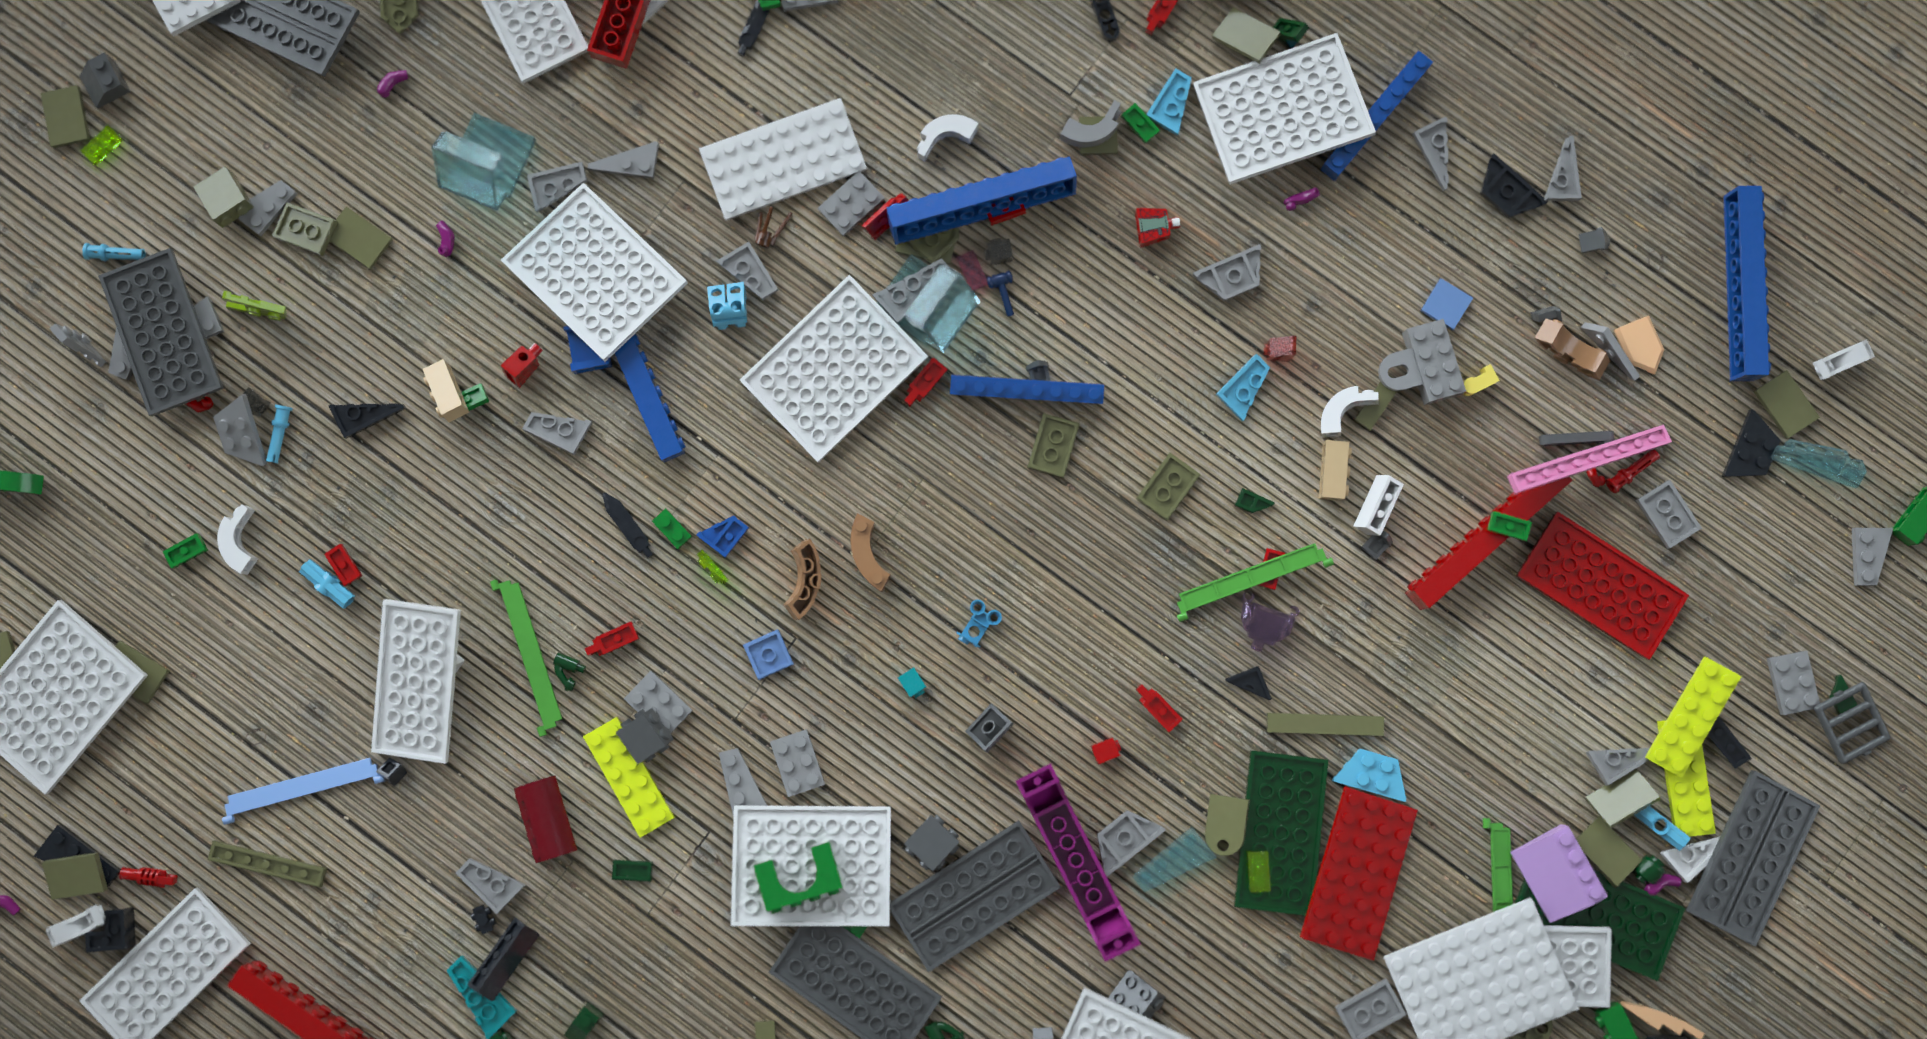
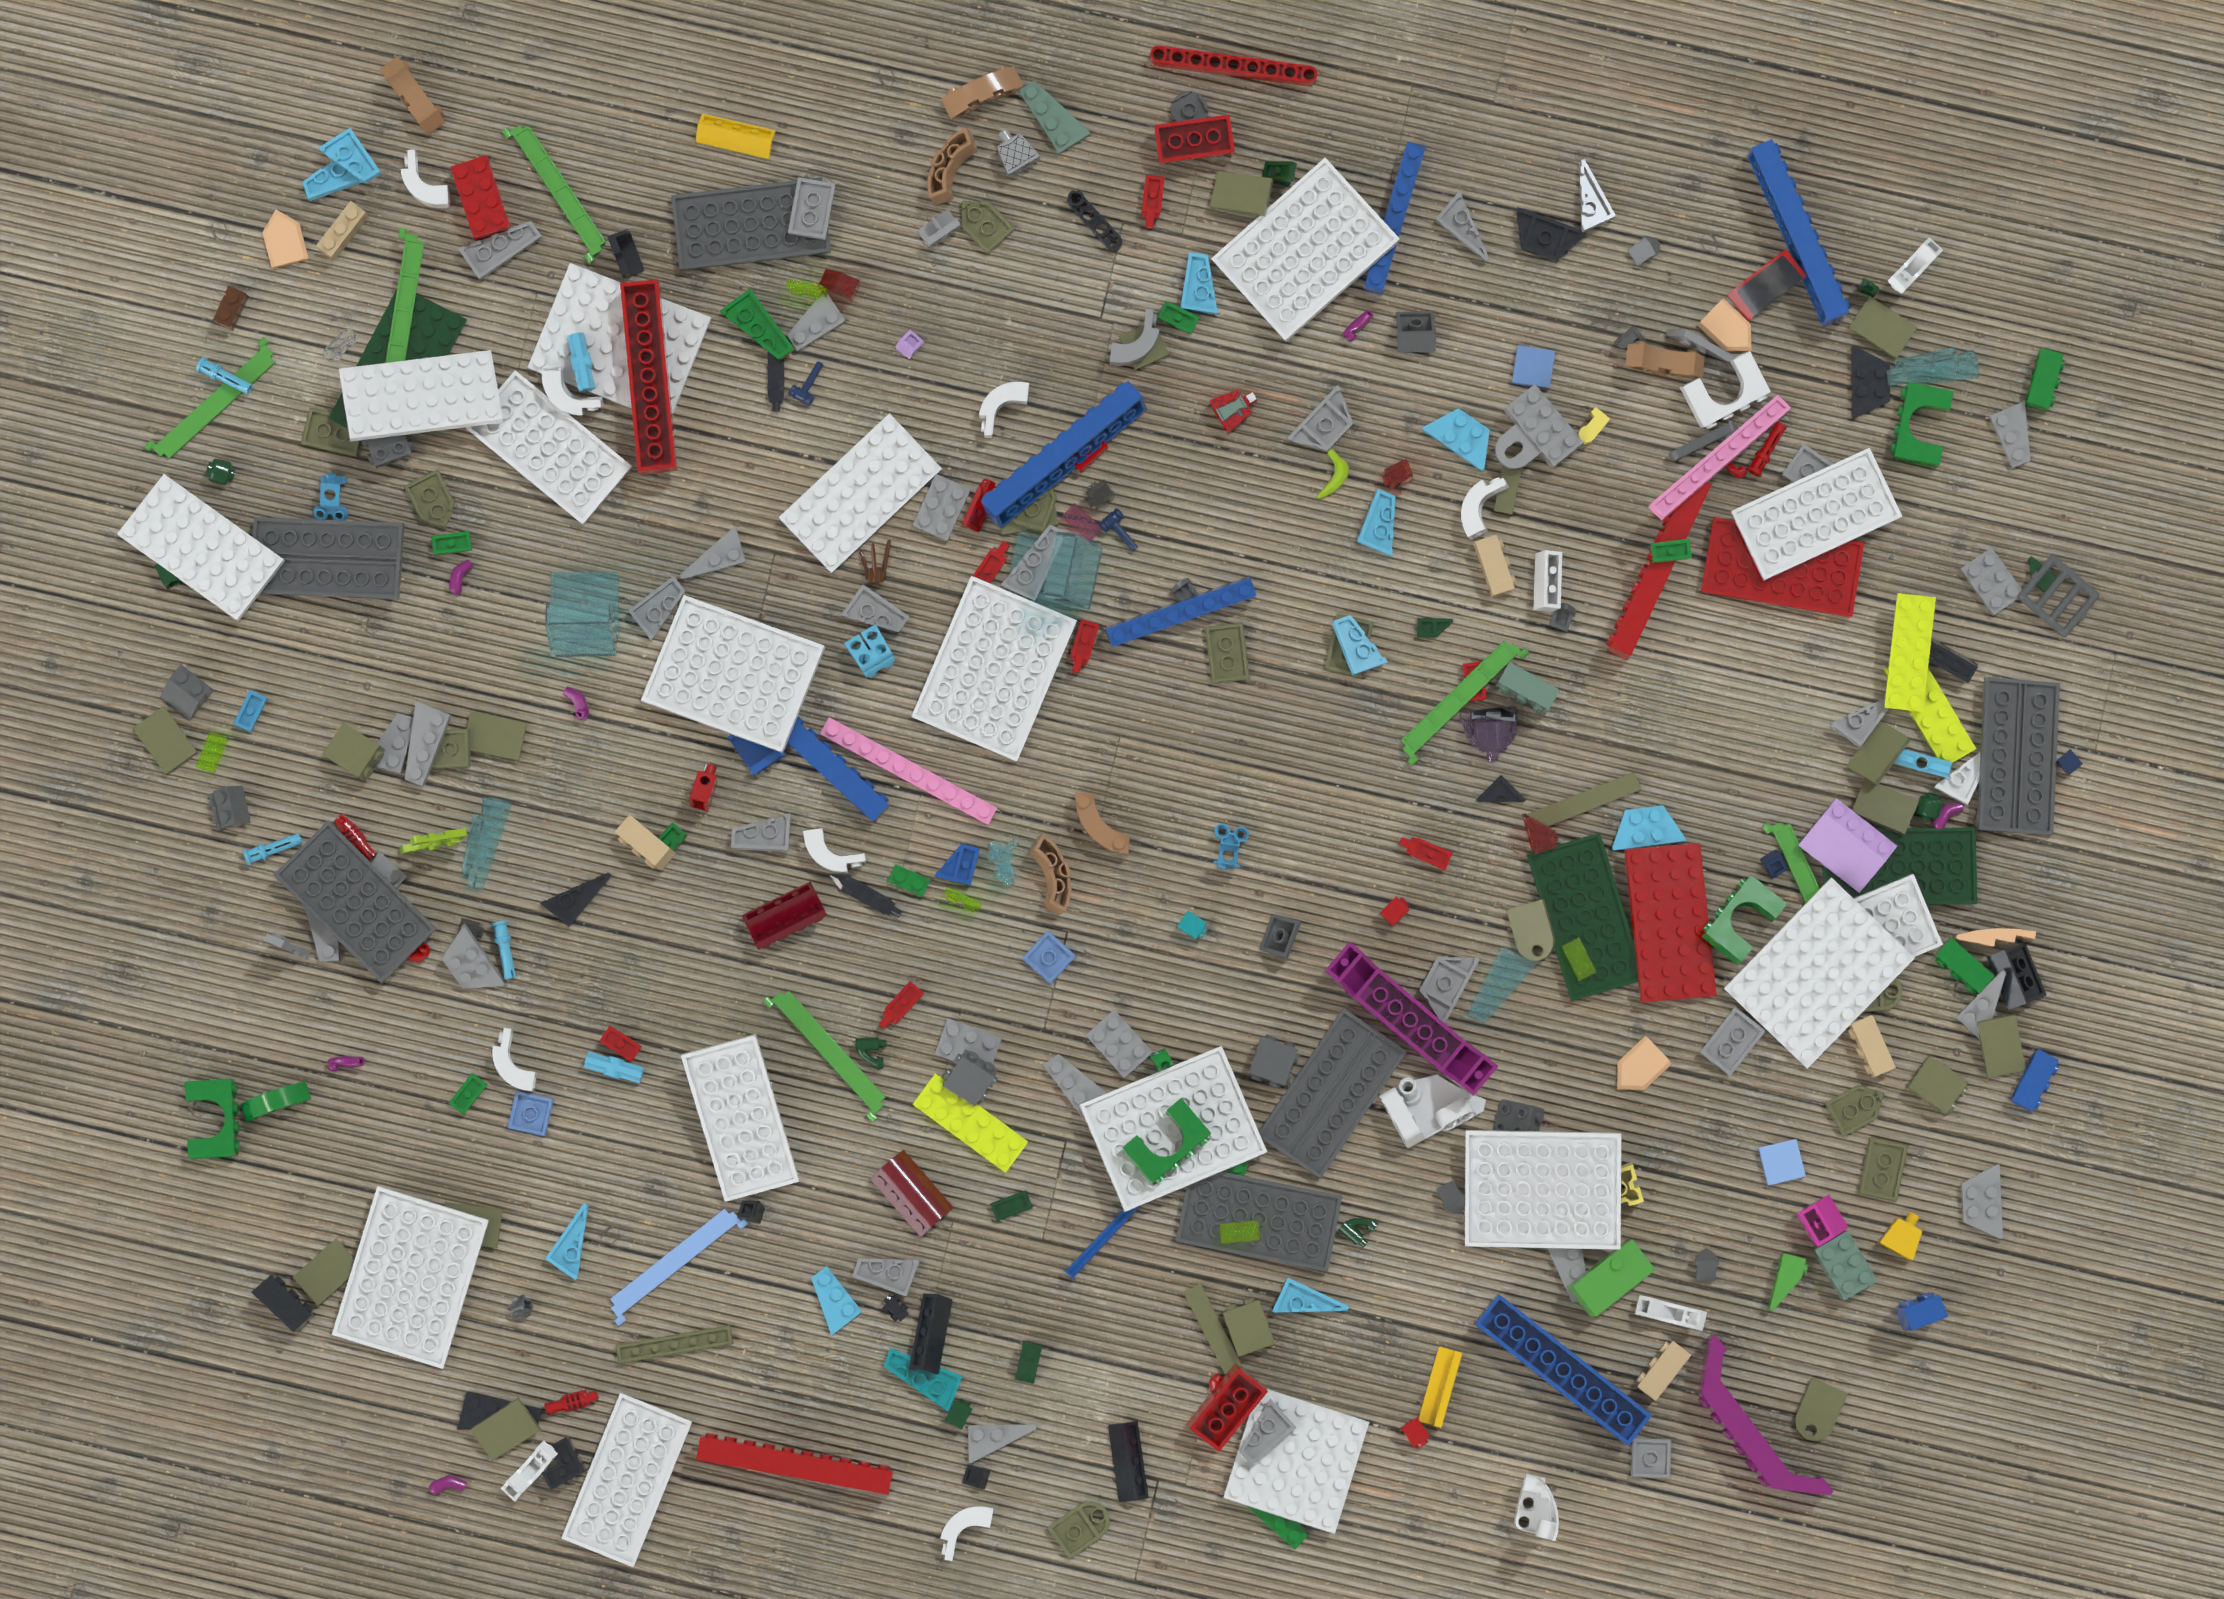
camera: 25 degrees left, 0 degrees up
(91, 474) = (345, 1061): none -> magenta arm
(92, 200) = (229, 807): none -> dark grey brick
(141, 768) = (521, 1307): none -> dark grey gear
(151, 122) = (250, 711): none -> dark azure plate
(191, 273) = (354, 835): none -> red hinge
(209, 734) = (568, 1248): none -> medium azure wing
(234, 593) = (530, 1113): none -> medium blue tile
(291, 215) = (426, 737): none -> light grey wing
(305, 327) = (483, 840): none -> clear light blue wedge
(398, 49) = (451, 543): none -> green plate
(431, 887) = (834, 1300): none -> medium azure wing
(542, 512) = (784, 915): none -> dark red brick
(600, 464) = (817, 849): none -> white arch
(694, 942) = (1099, 1242): none -> blue axle
(716, 429) = (908, 771): none -> bright pink plate
(763, 545) = (1000, 856): none -> clear light blue brick
(770, 48) = (802, 394): none -> dark blue piece
(829, 795) = (1161, 1060): none -> green leg
(830, 990) = (1239, 1231): none -> clear neon green plate
(875, 272) = (992, 563): none -> red hinge
(886, 45) = (909, 344): none -> lavender slope
(1058, 950) = (1429, 1107): none -> white panel
(1174, 489) = (1356, 647): none -> medium azure wing
(1226, 328) = (1339, 476): none -> lime piece
(1271, 738) = (1539, 834): none -> clear red slope
(1274, 995) = (1641, 1066): none -> light nougat tile
(1277, 607) = (1496, 713): none -> black tile
(1317, 597) = (1527, 688): none -> sand green brick
(1352, 227) = (1415, 332): none -> dark grey slope
(1354, 339) = (1462, 436): none -> medium azure wing
(1404, 902) = (1720, 932): none -> arch
(1478, 858) = (1774, 864): none -> dark blue slope
(1643, 407) = (1752, 388): none -> white arch
(1656, 550) = (1816, 514): none -> white plate
(1696, 319) = (1766, 285): none -> black sticker
(1765, 521) = (1906, 446): none -> green arch
(1789, 361) = (1868, 288): none -> dark green tile
(1798, 884) = (2069, 762): none -> dark blue slope

